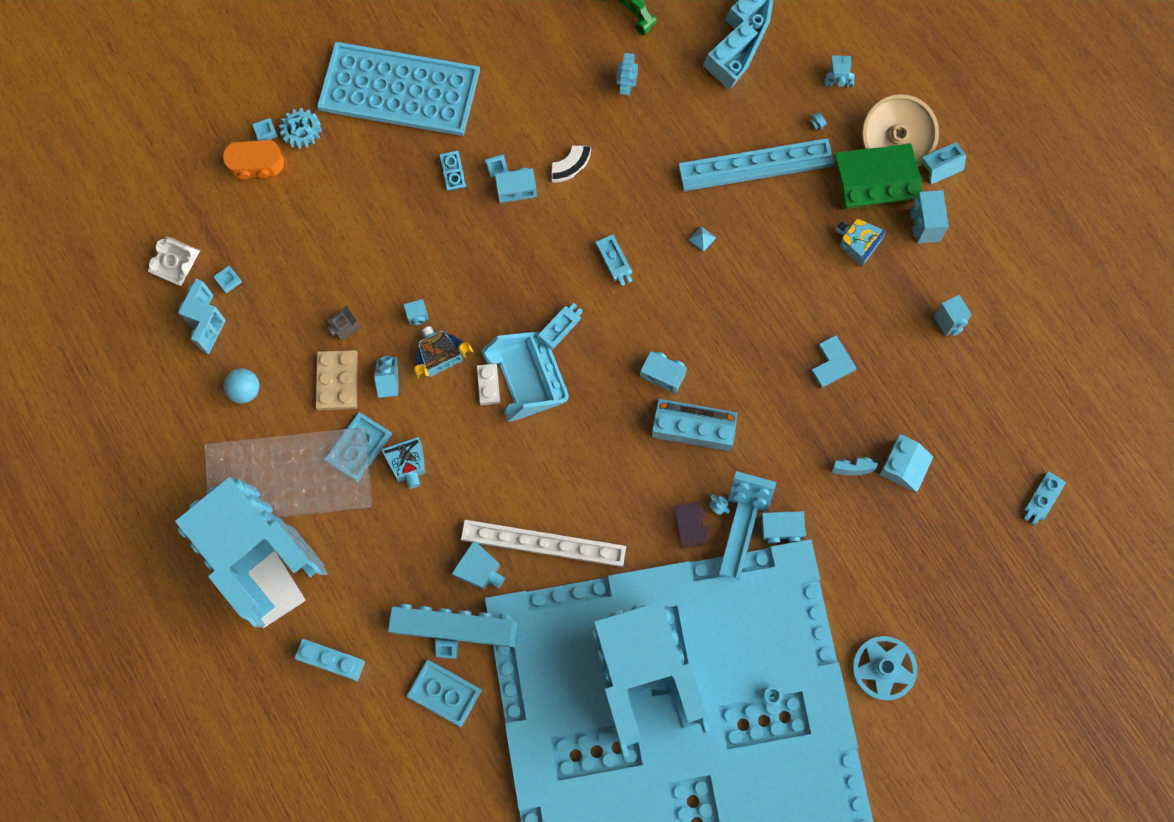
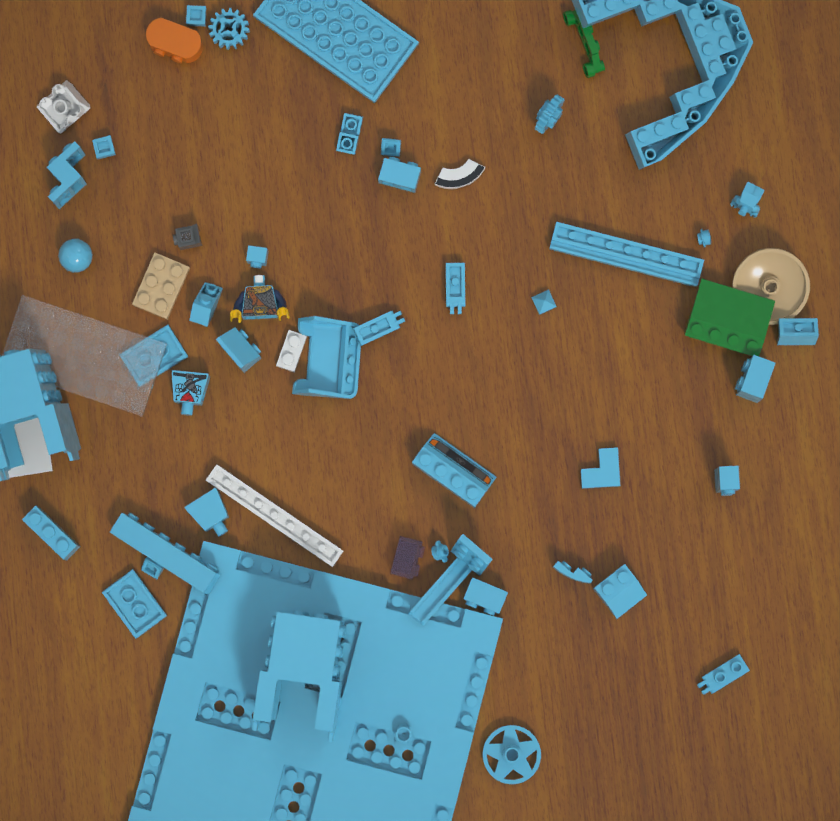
camera: 25 degrees right, 10 degrees up
(437, 403) = (239, 349): none -> medium azure slope
(663, 371) = (449, 411): medium azure brick -> none
(860, 239) = (683, 369): torso -> none

